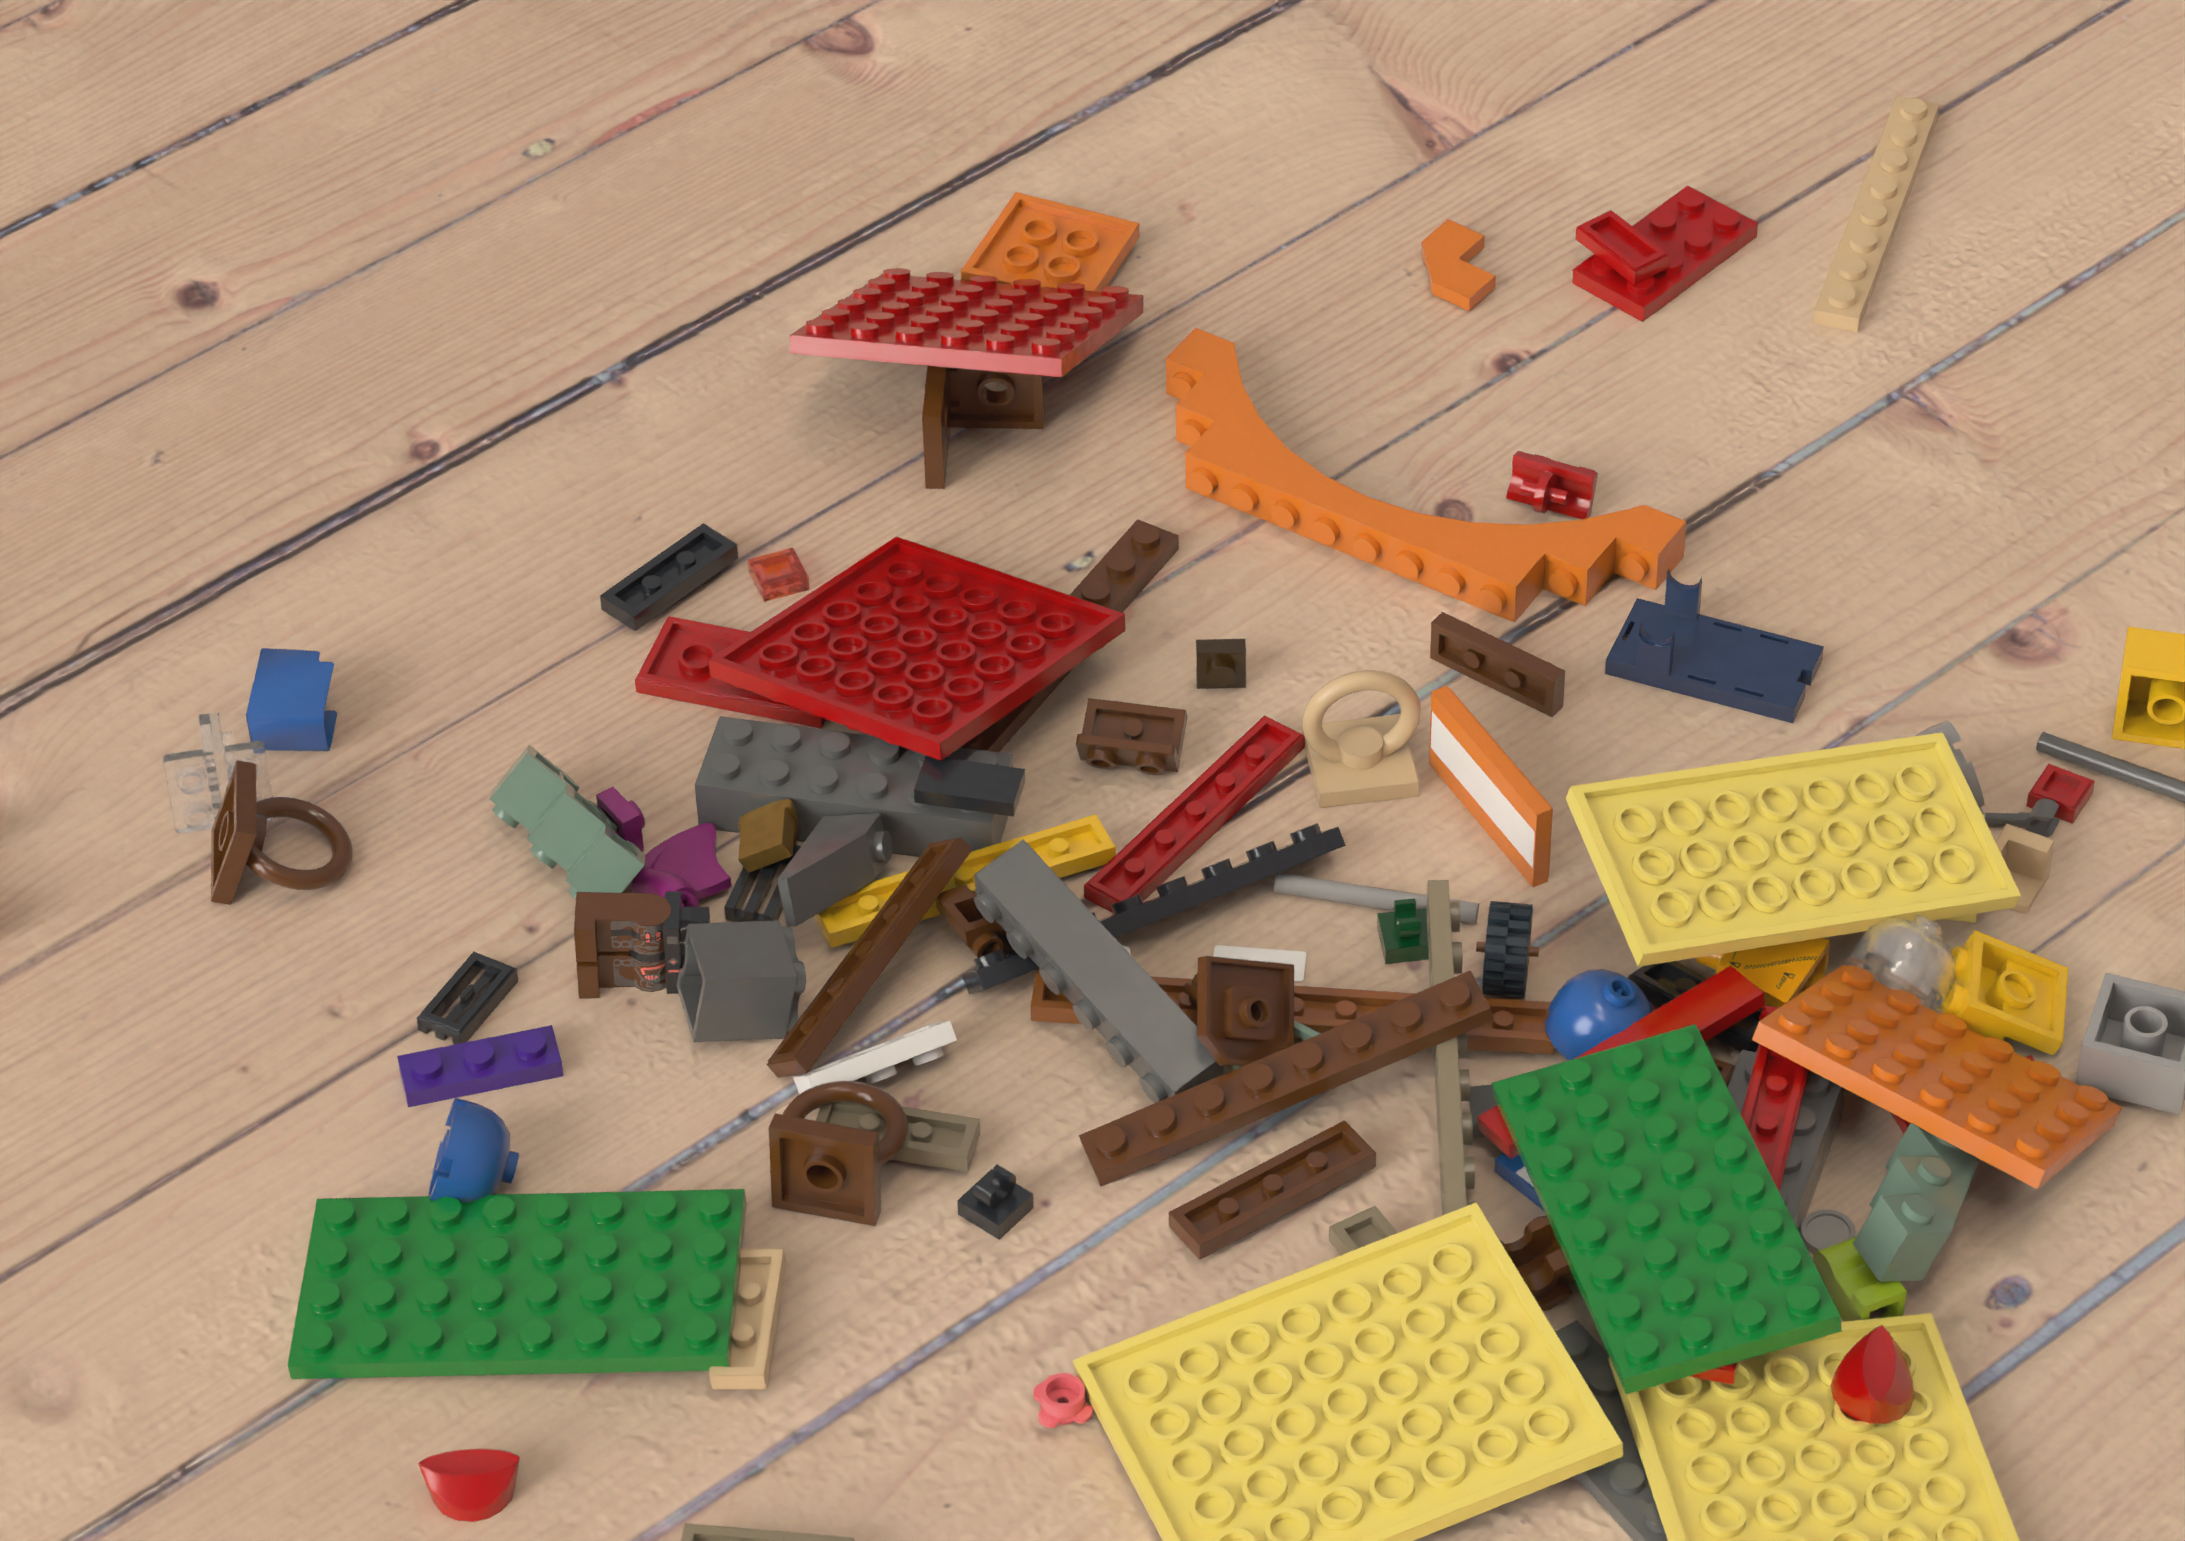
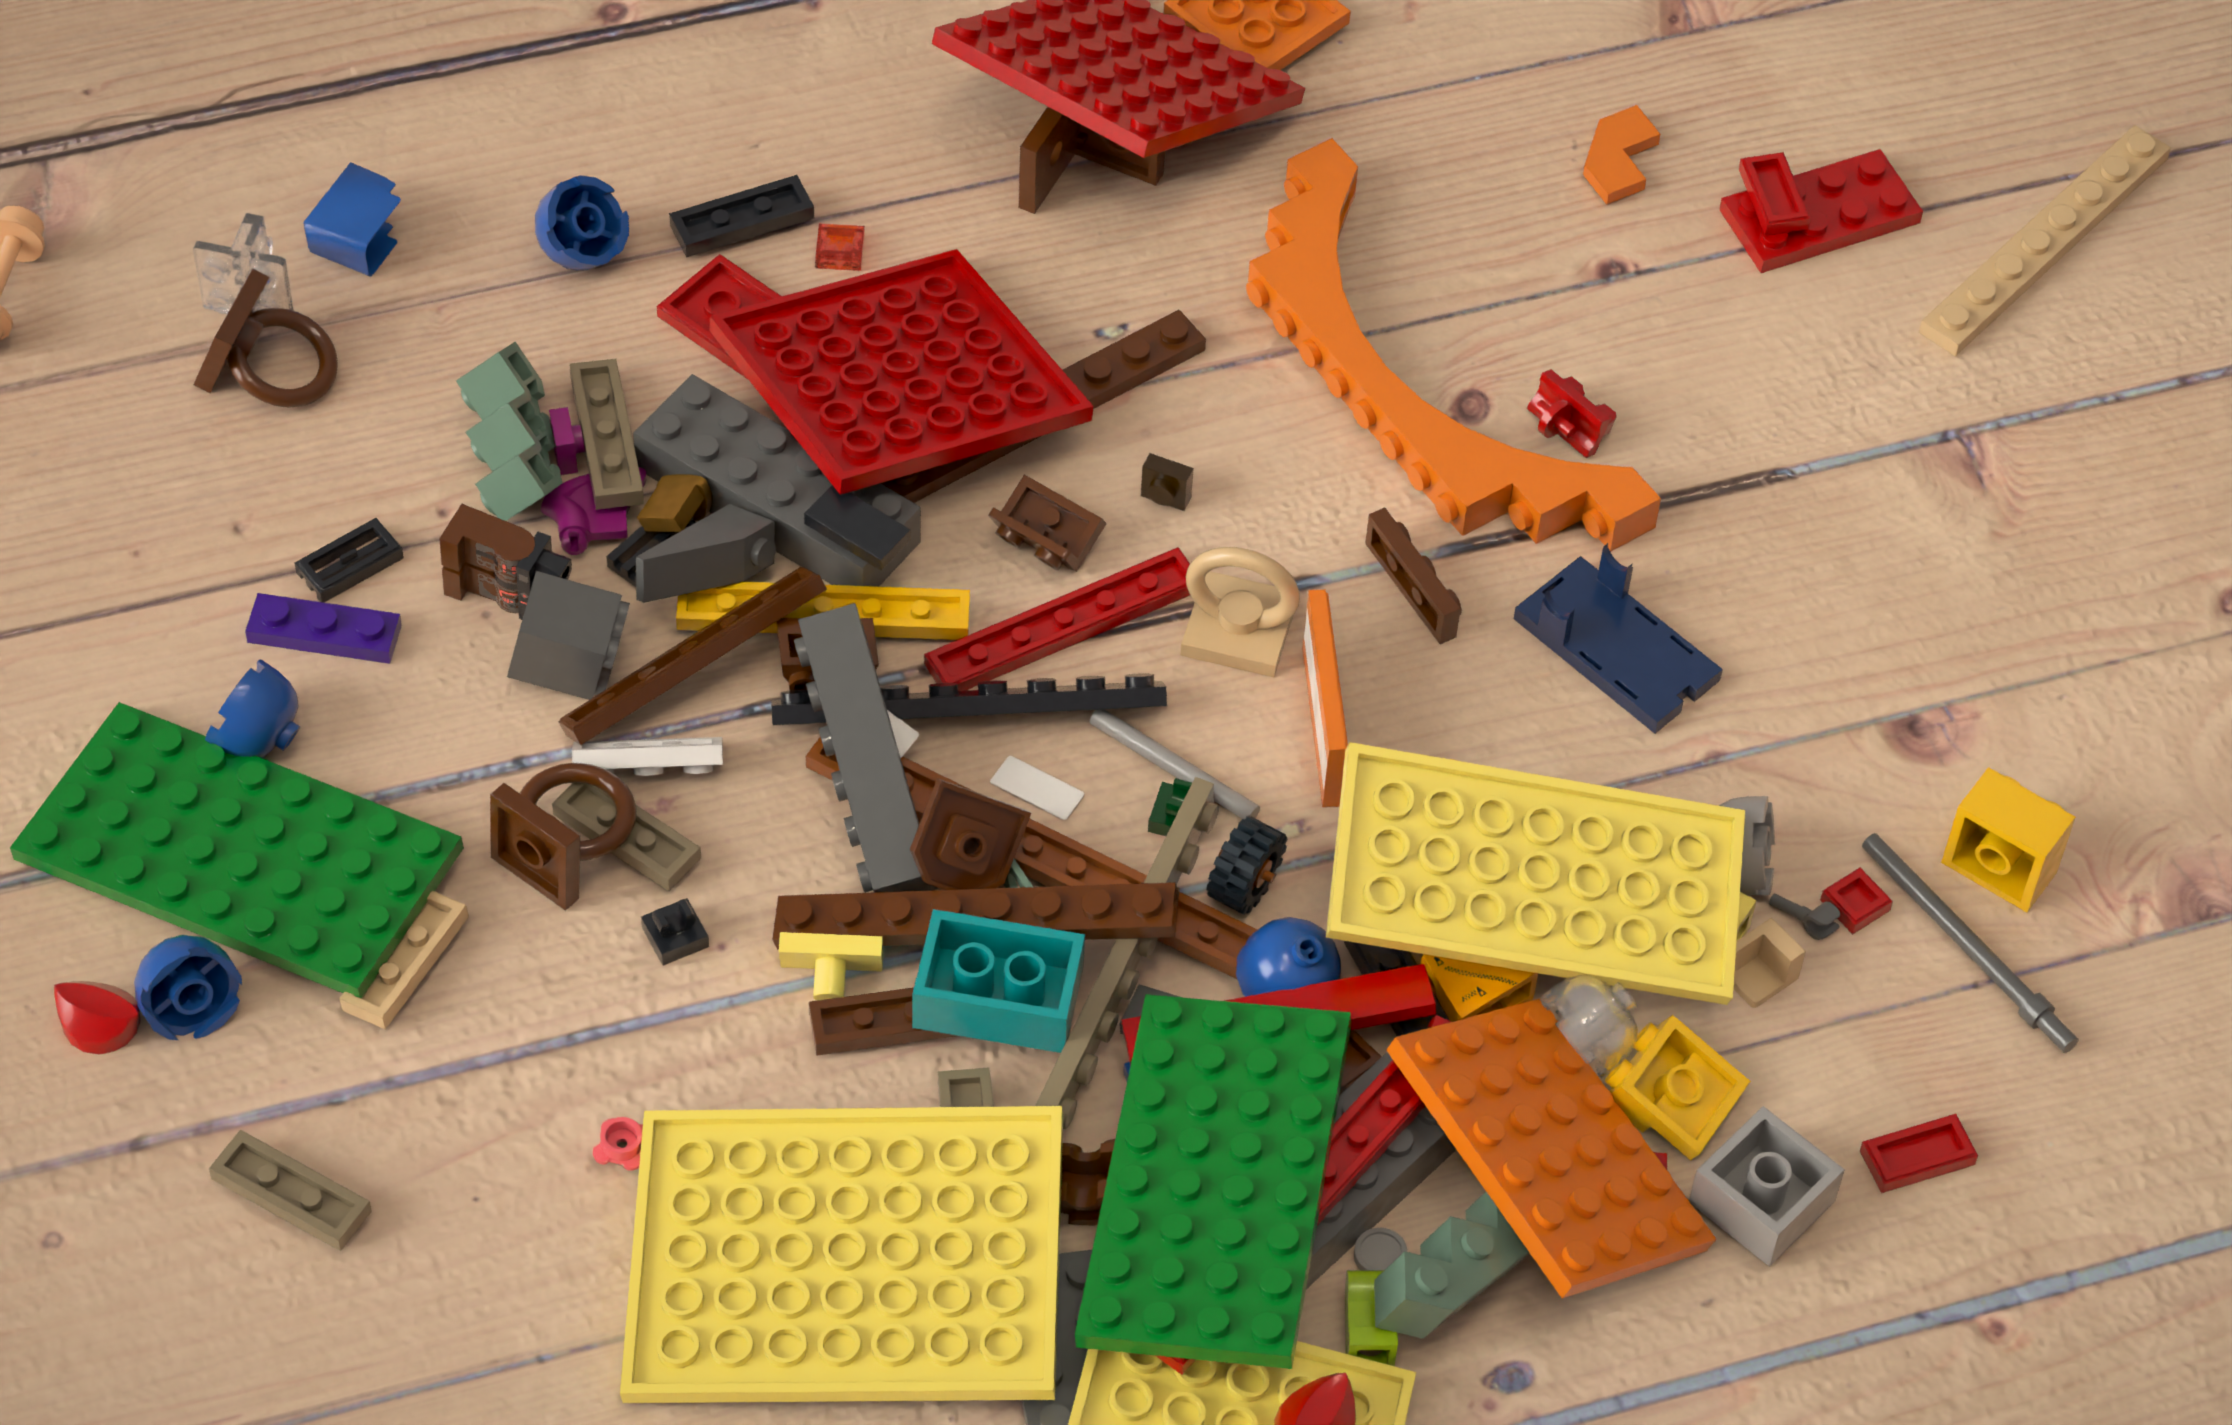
camera: 20 degrees right, 10 degrees up
(523, 629) = (581, 223): none -> blue cylinder
(553, 1415) = (187, 987): none -> blue cylinder
(665, 804) = (606, 434): none -> dark tan plate
(1163, 1168) = (830, 958): none -> light yellow tile
(1349, 1120) = (998, 981): none -> teal brick

